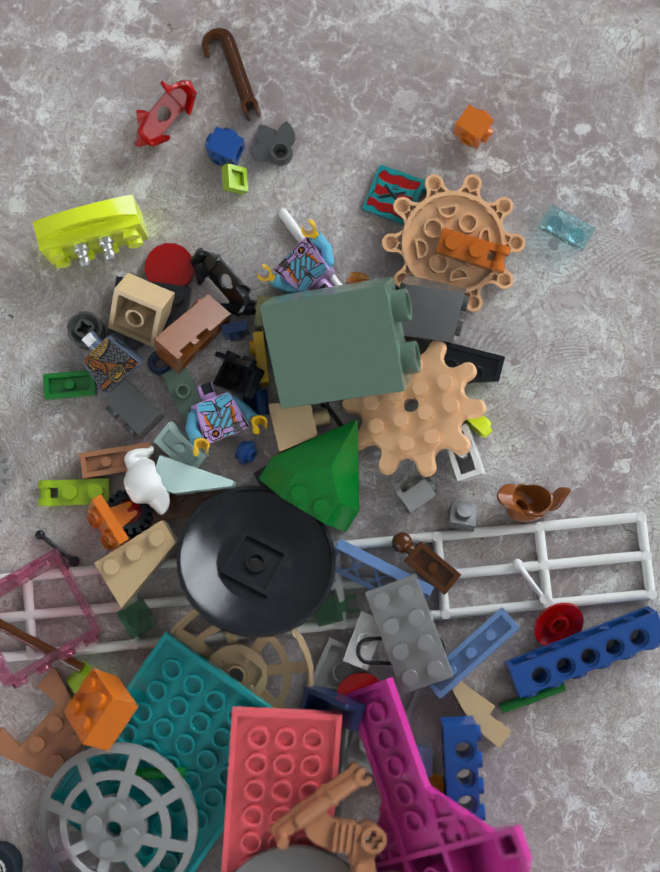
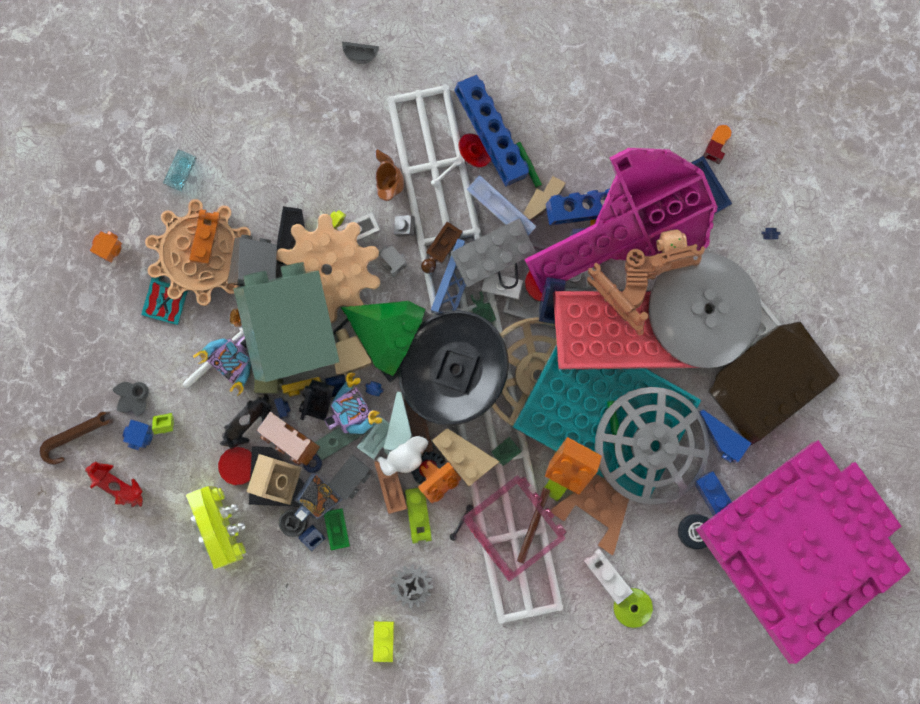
camera: 95 degrees left, 0 degrees up
(63, 352) = (312, 538): none -> dark blue plate

